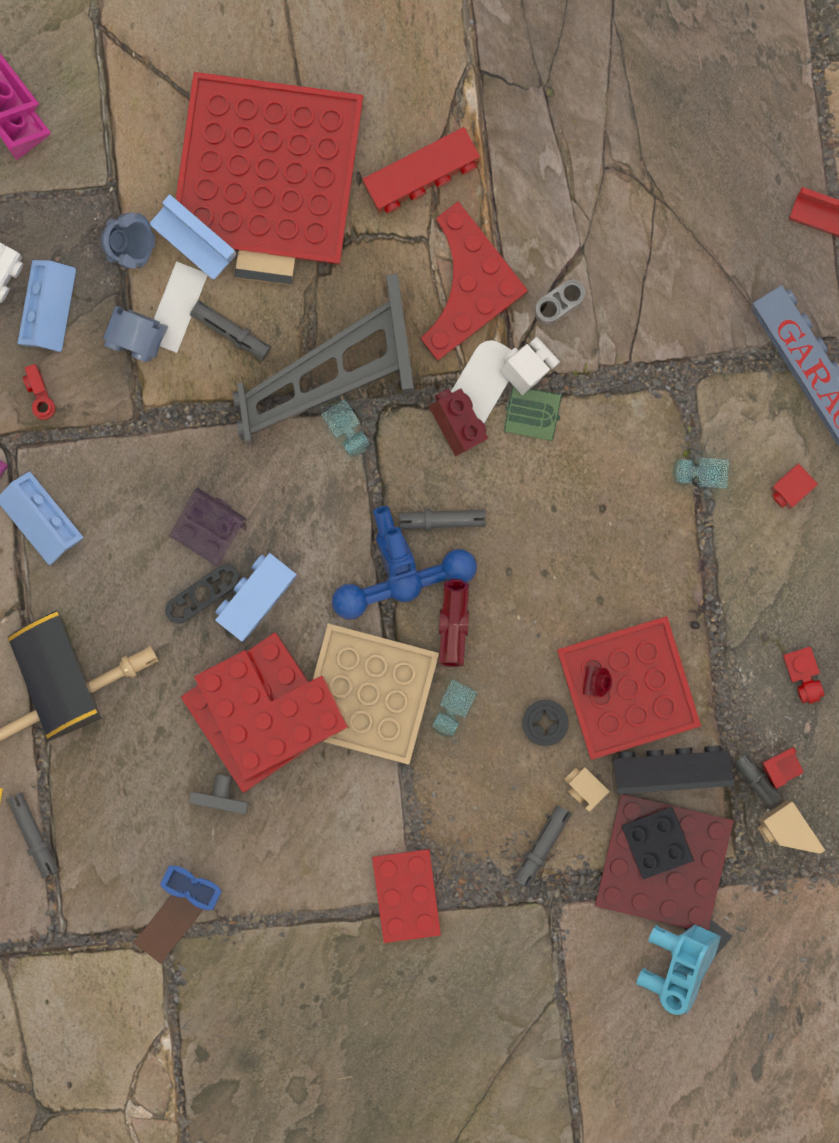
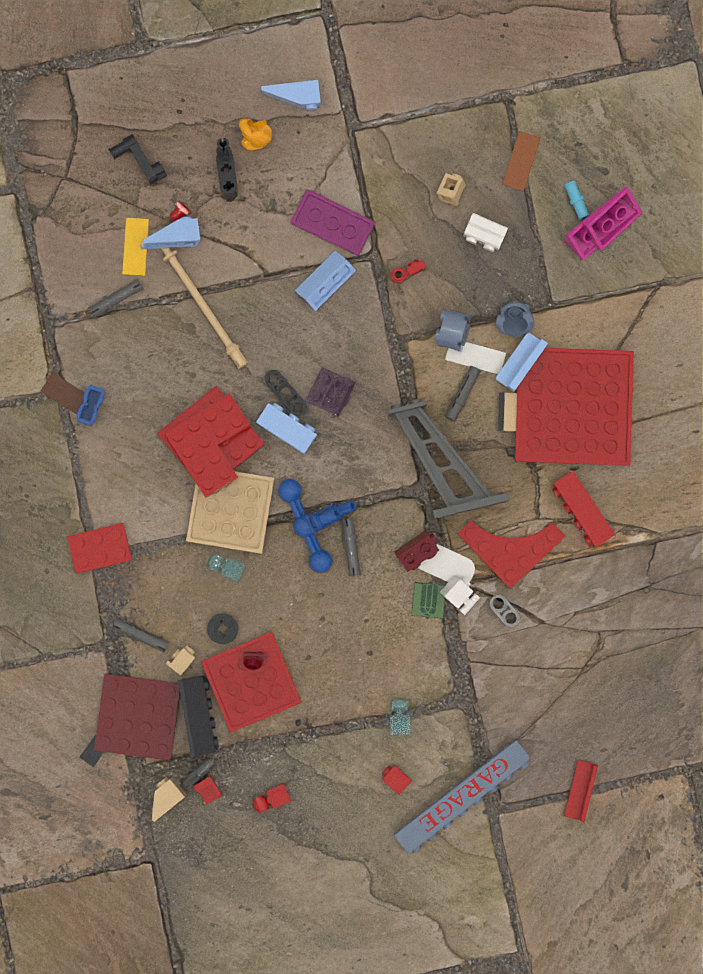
camera: 90 degrees right, 0 degrees up
(46, 305) = (467, 270): light blue panel -> none
(54, 676) = (221, 301): black slope -> none
(220, 797) = (152, 418): dark grey tile -> none
(341, 422) = (409, 473): clear light blue plate -> none
(453, 623) = (282, 561): dark red piece -> none
(657, 843) = (149, 710): black hinge -> none
(690, 960) = (71, 739): medium azure piece -> none

